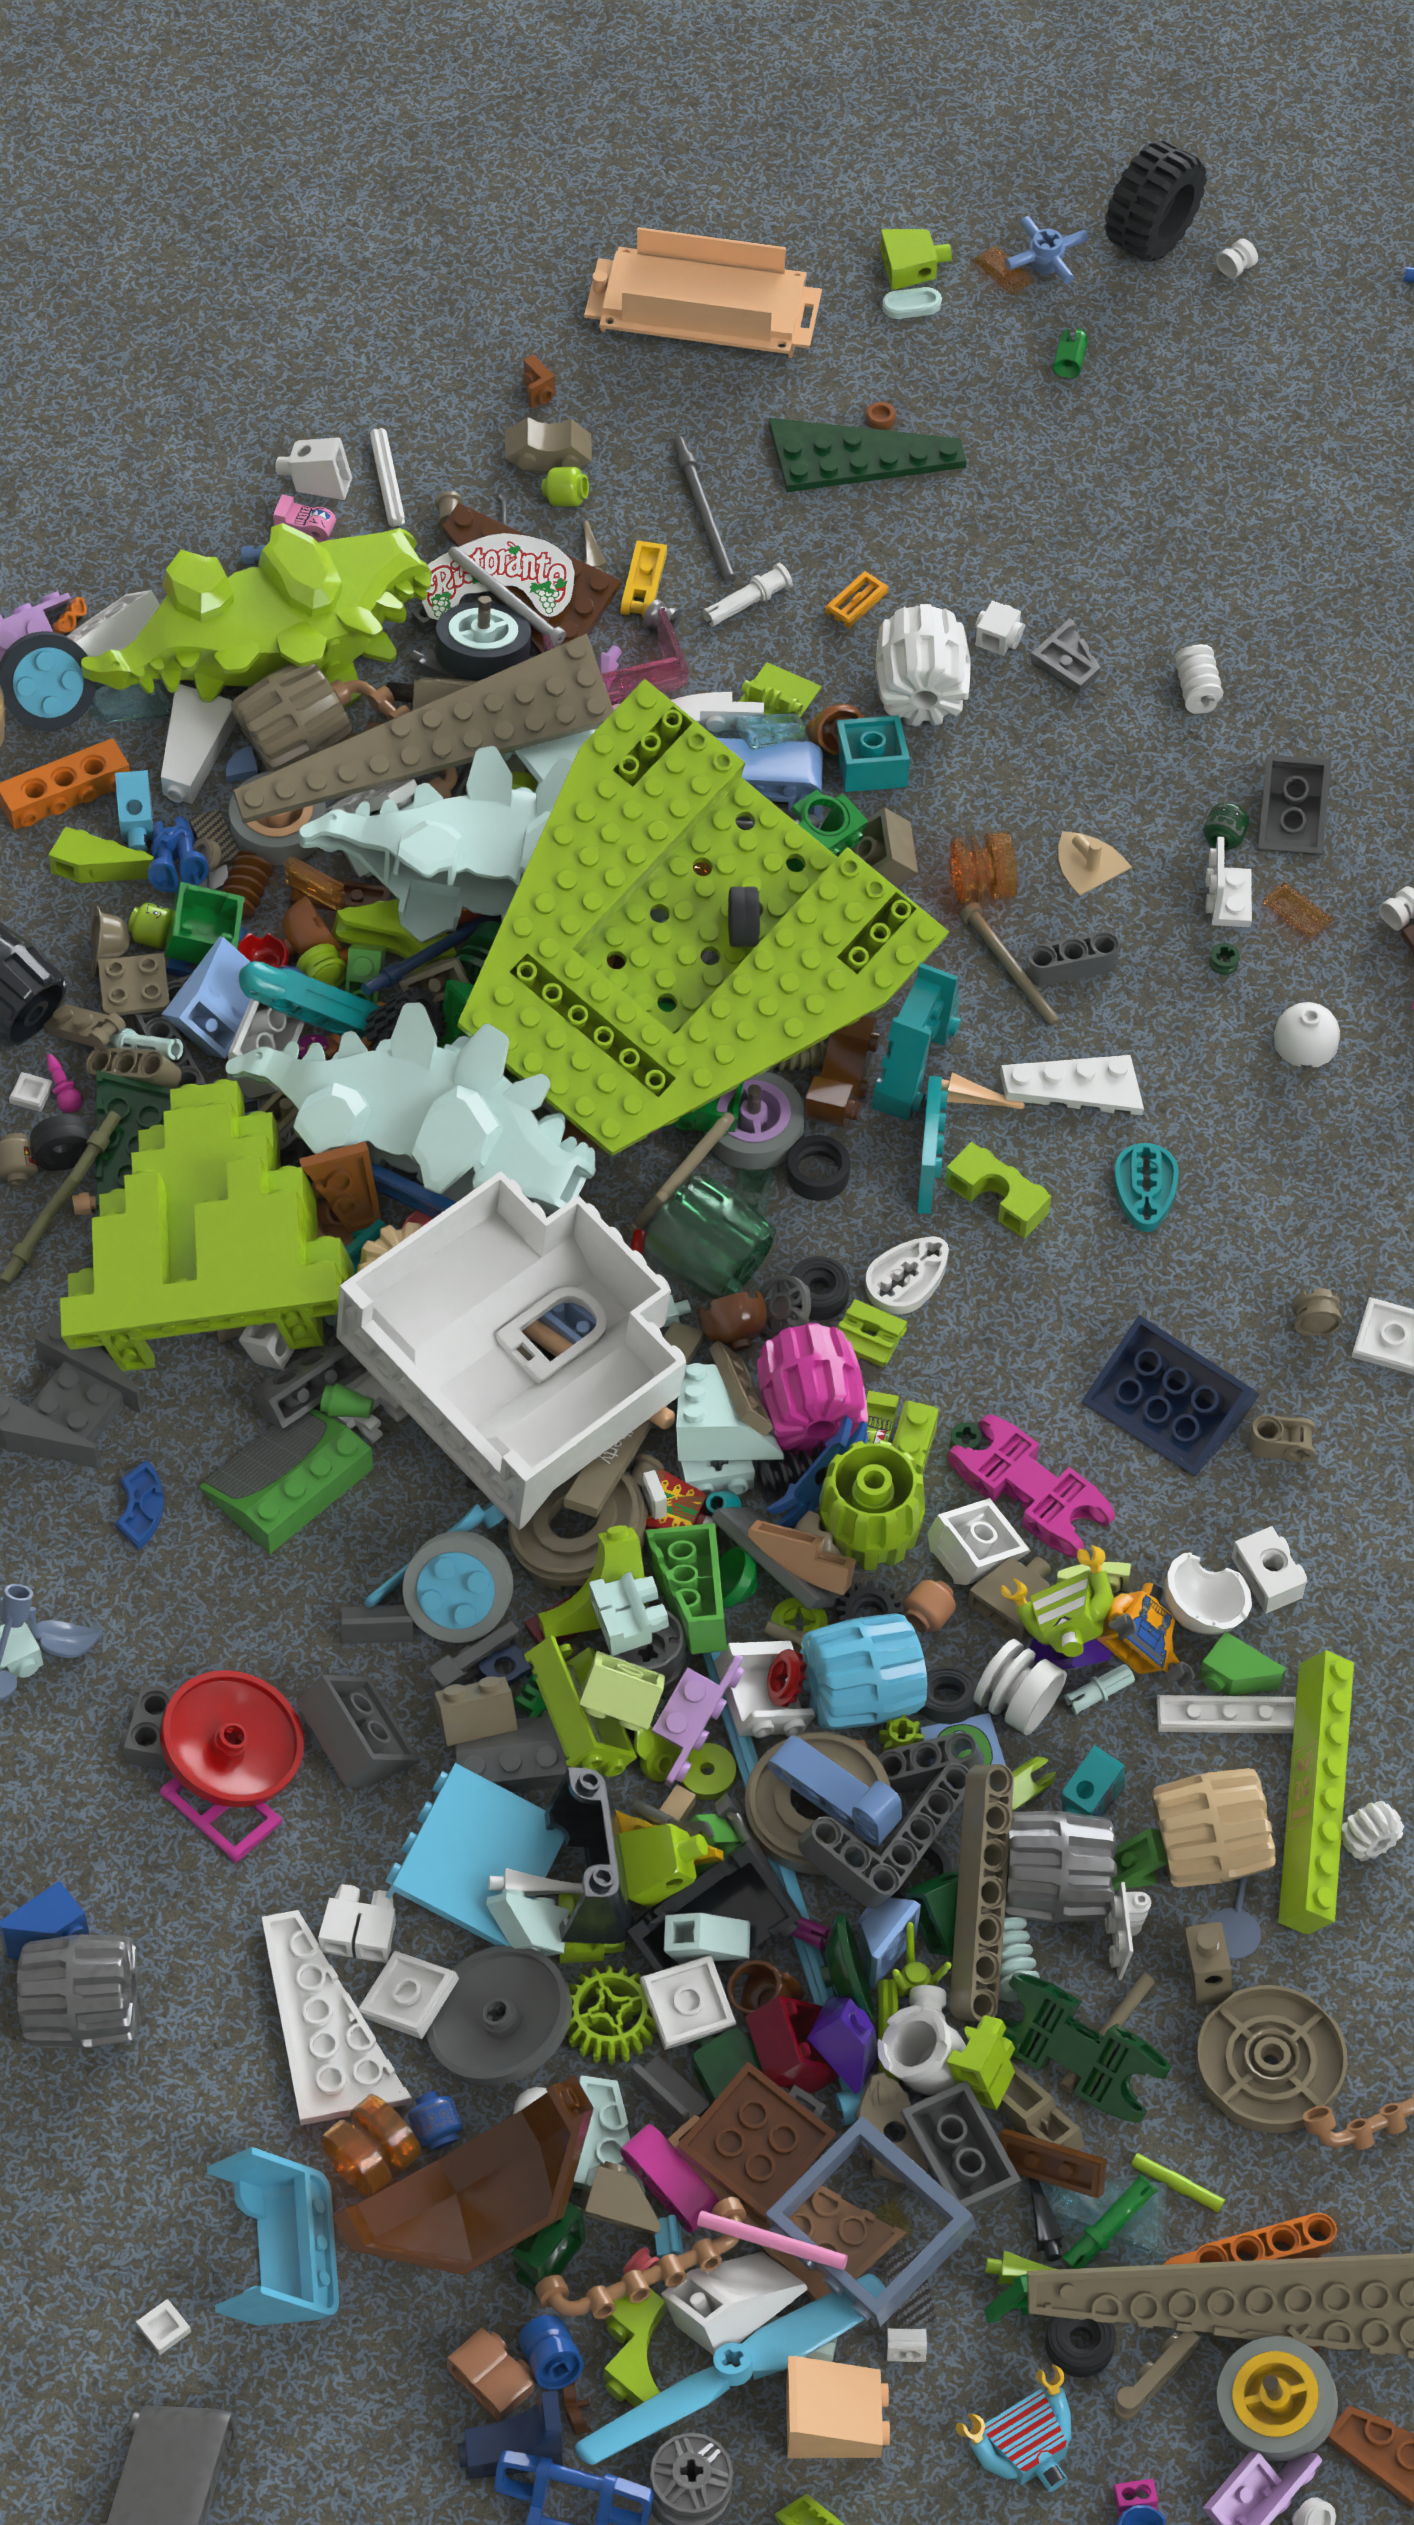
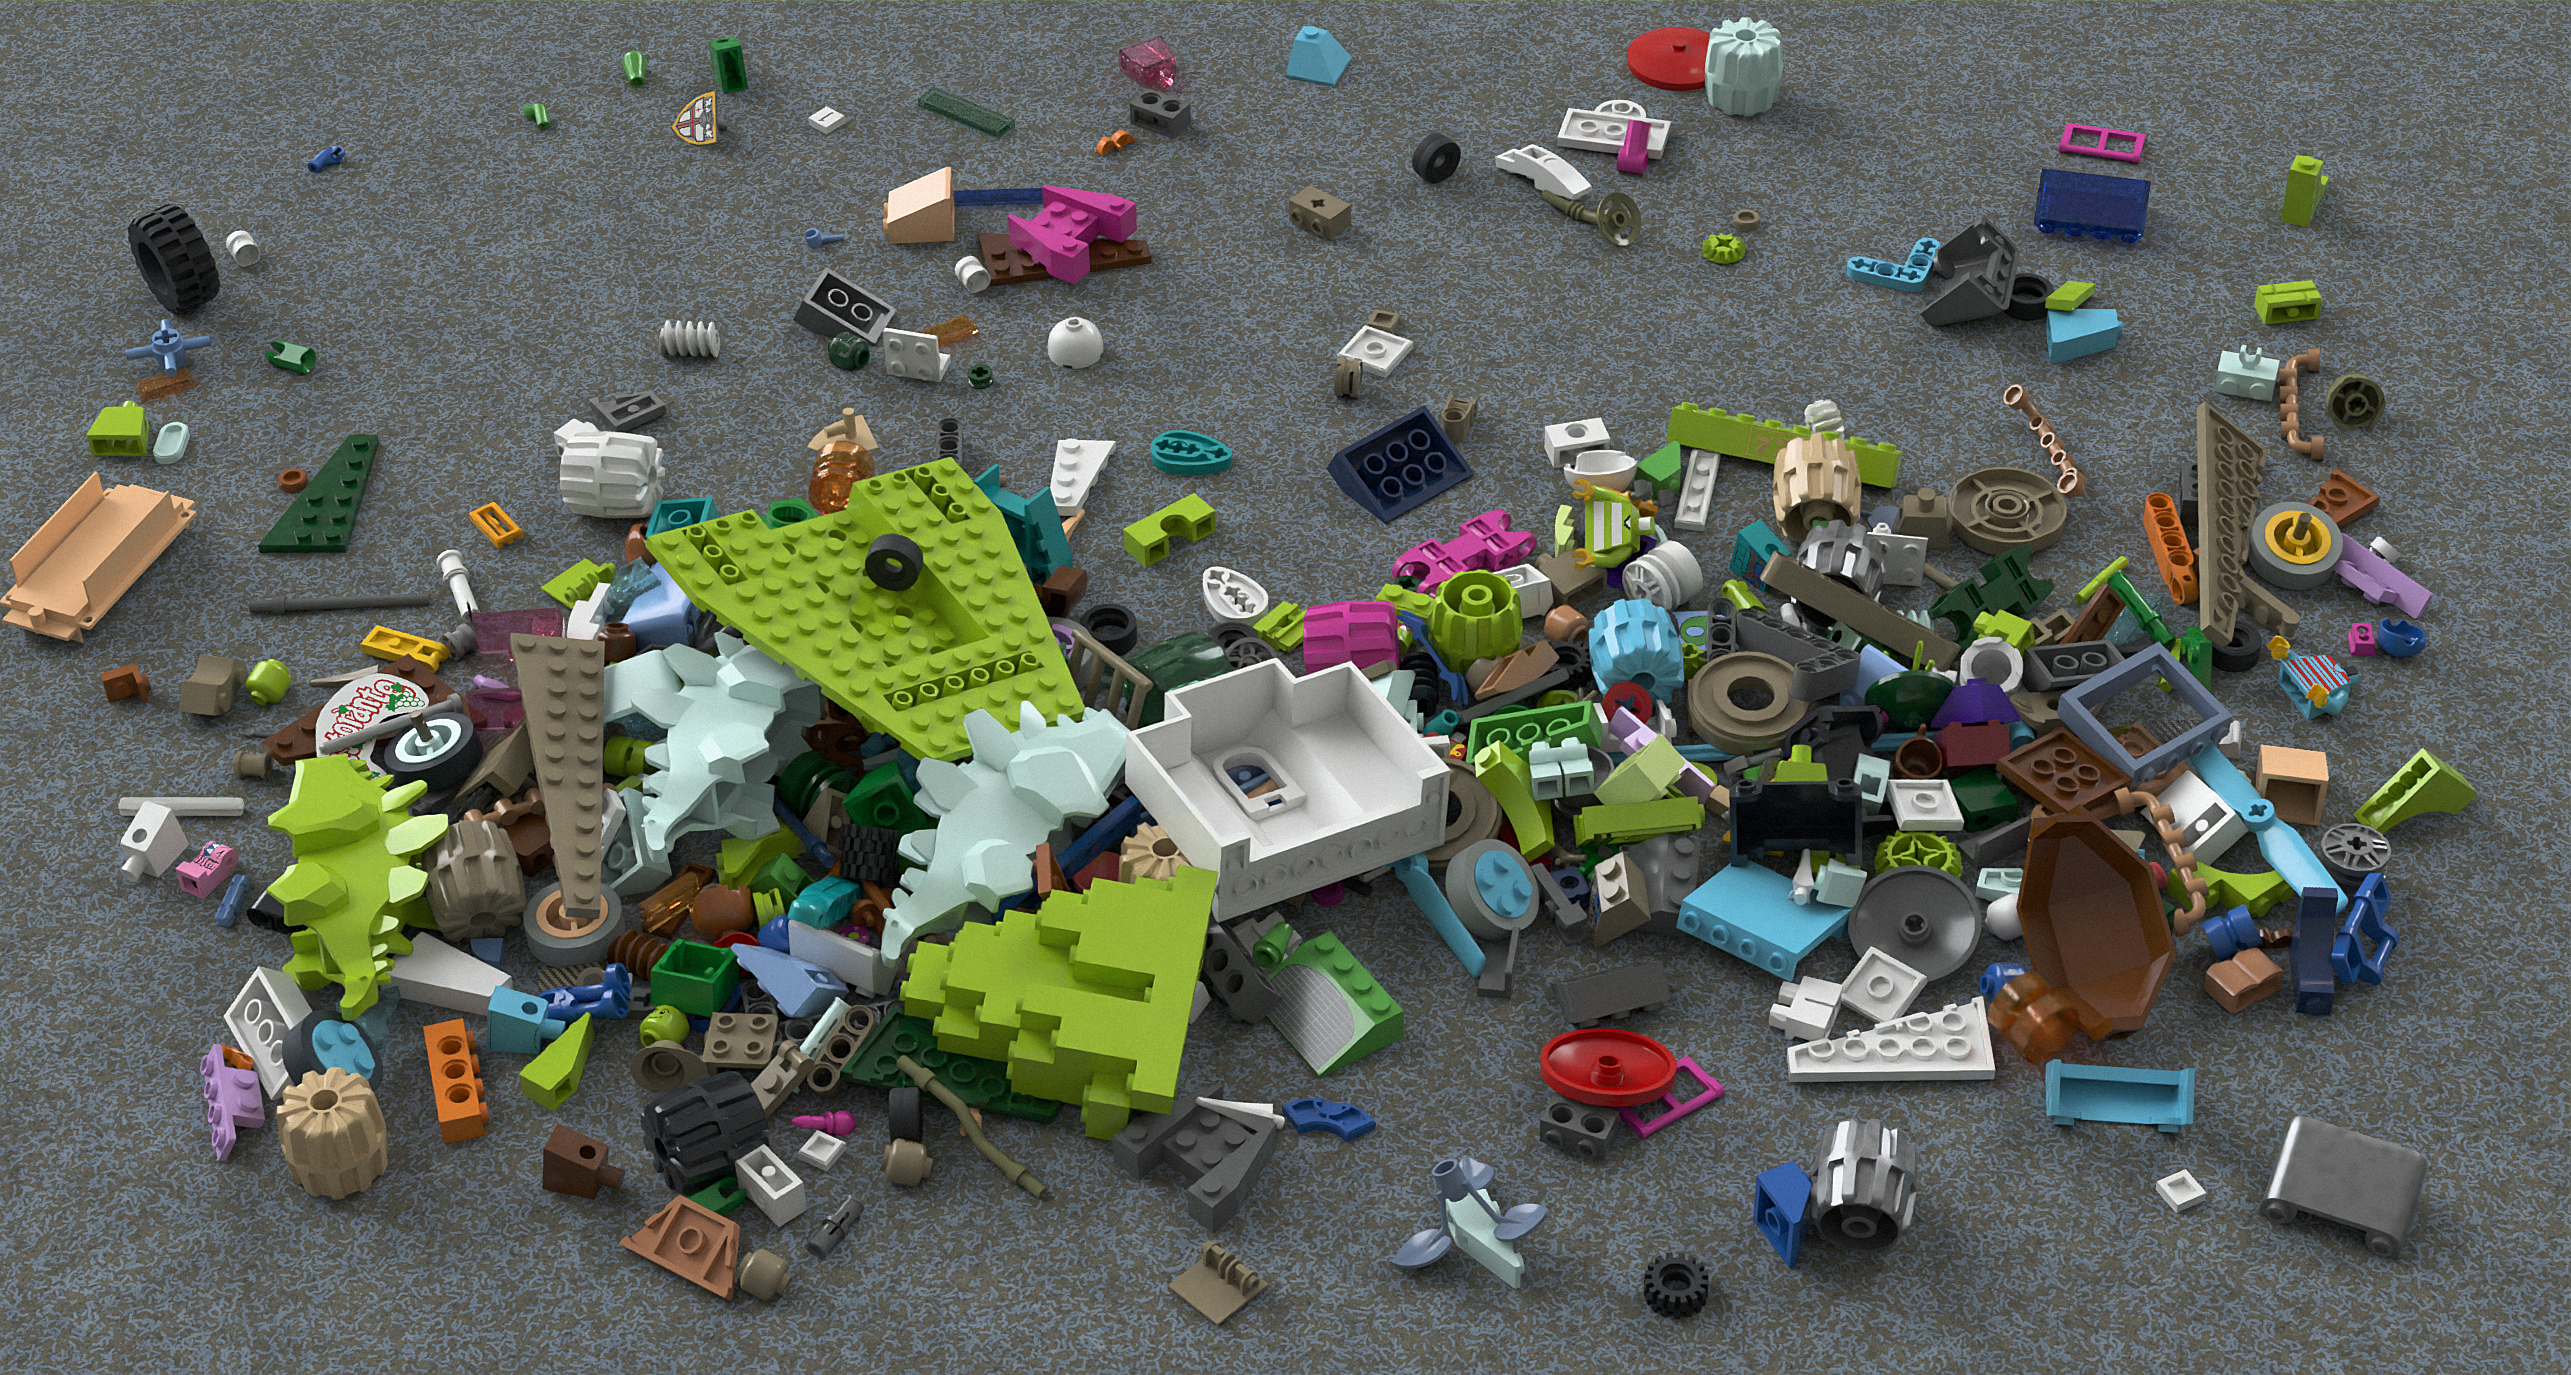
camera: 75 degrees left, 15 degrees down
(122, 1437) = (1250, 1114): none -> white piece
(772, 2240) = (2161, 766): bright pink bar -> none
(862, 1809) = (1763, 668): medium blue beam -> none
(932, 1142) = (1122, 554): teal wing -> none

